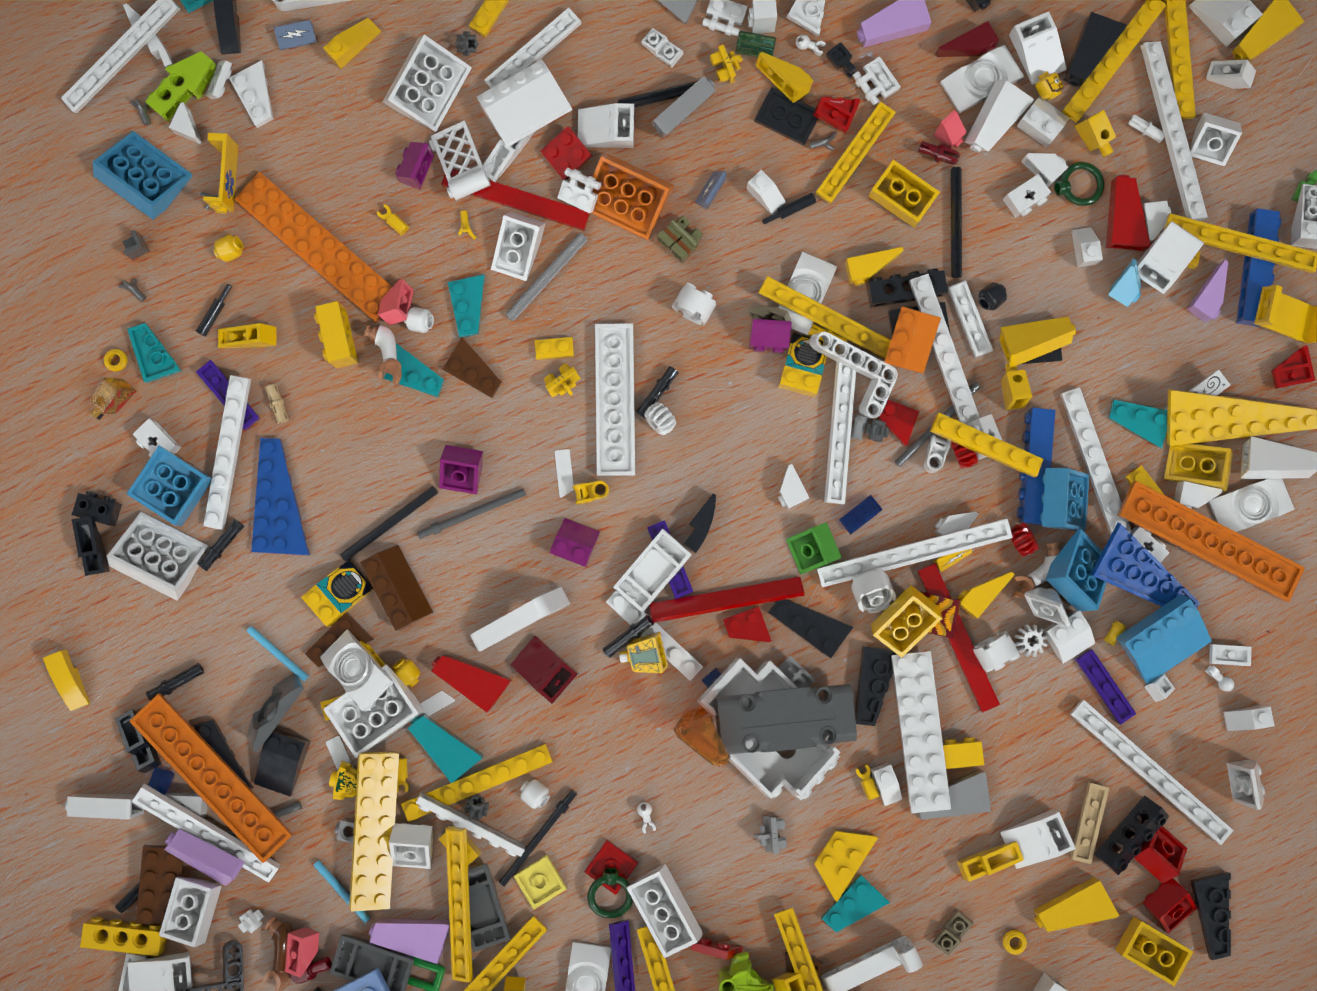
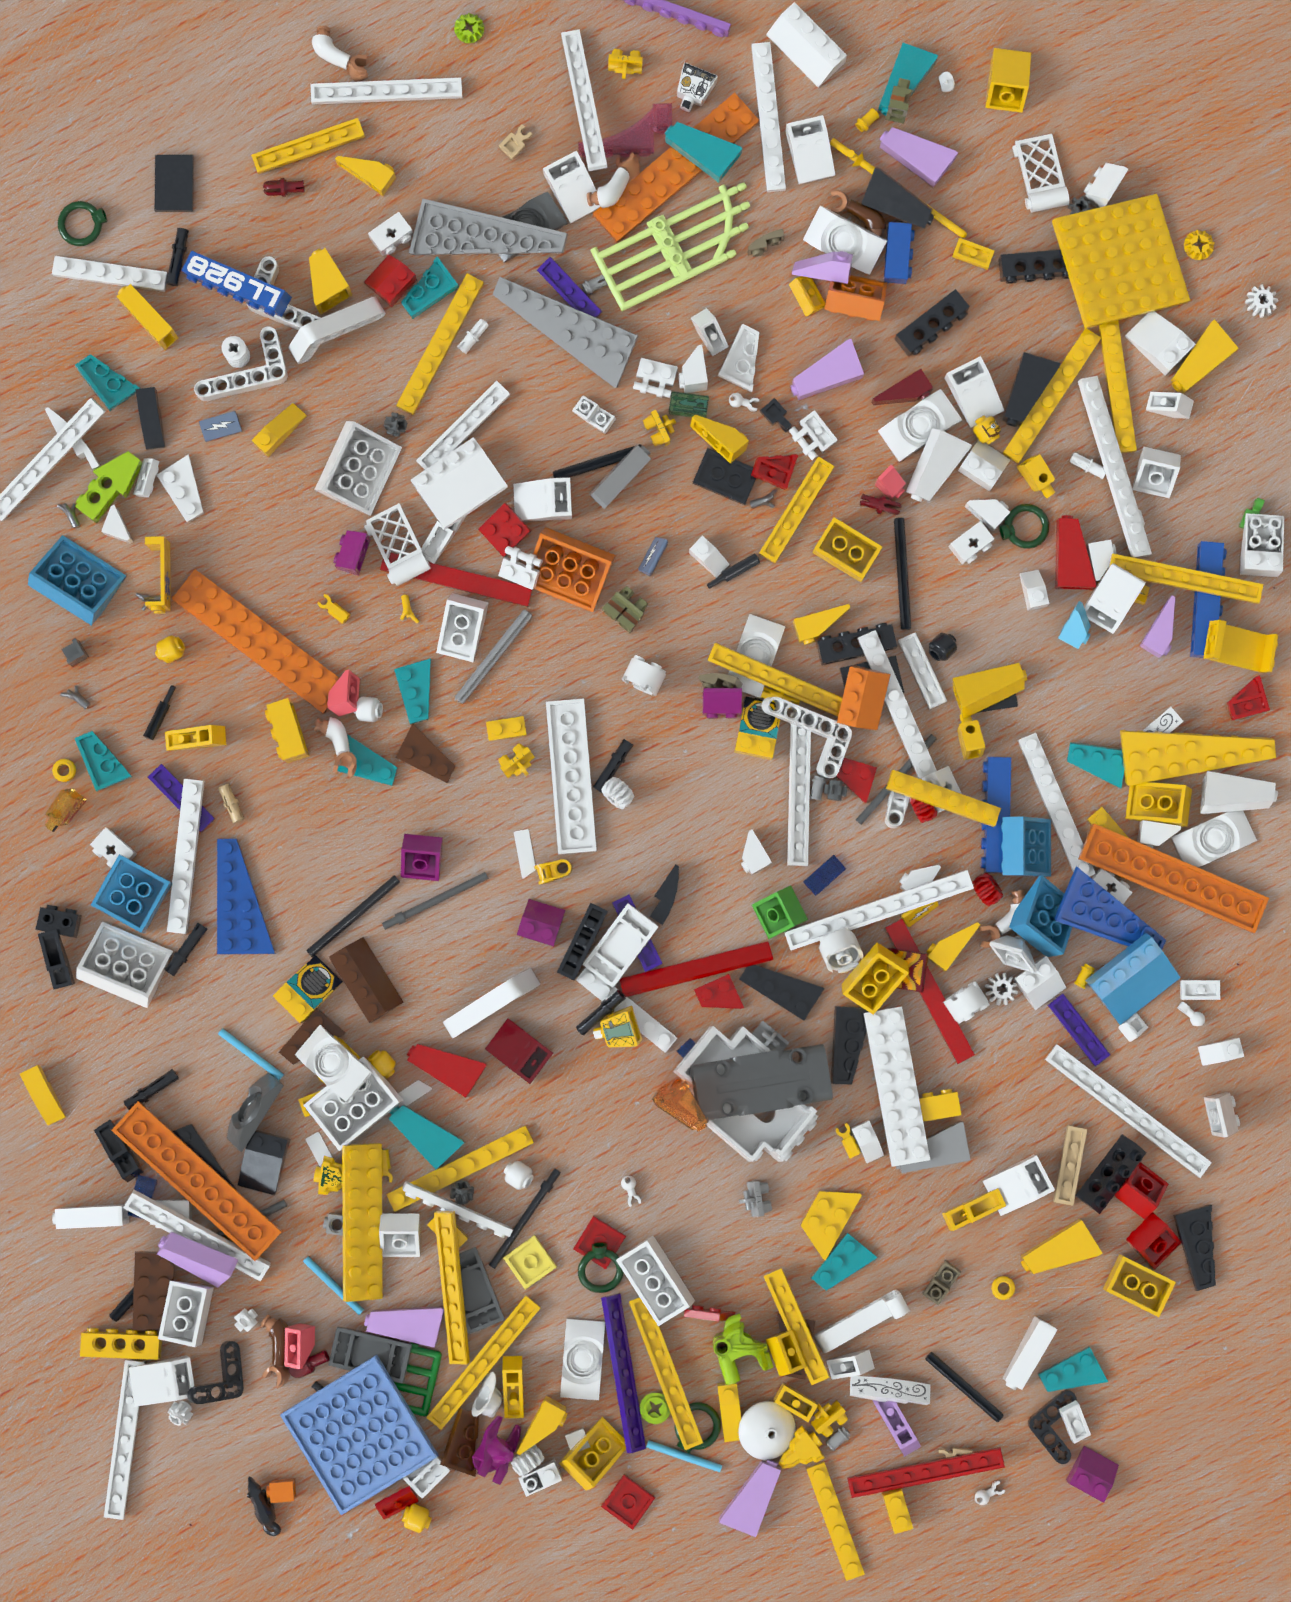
camera: 10 degrees left, 0 degrees up
(614, 564) = (582, 941): none -> black brick

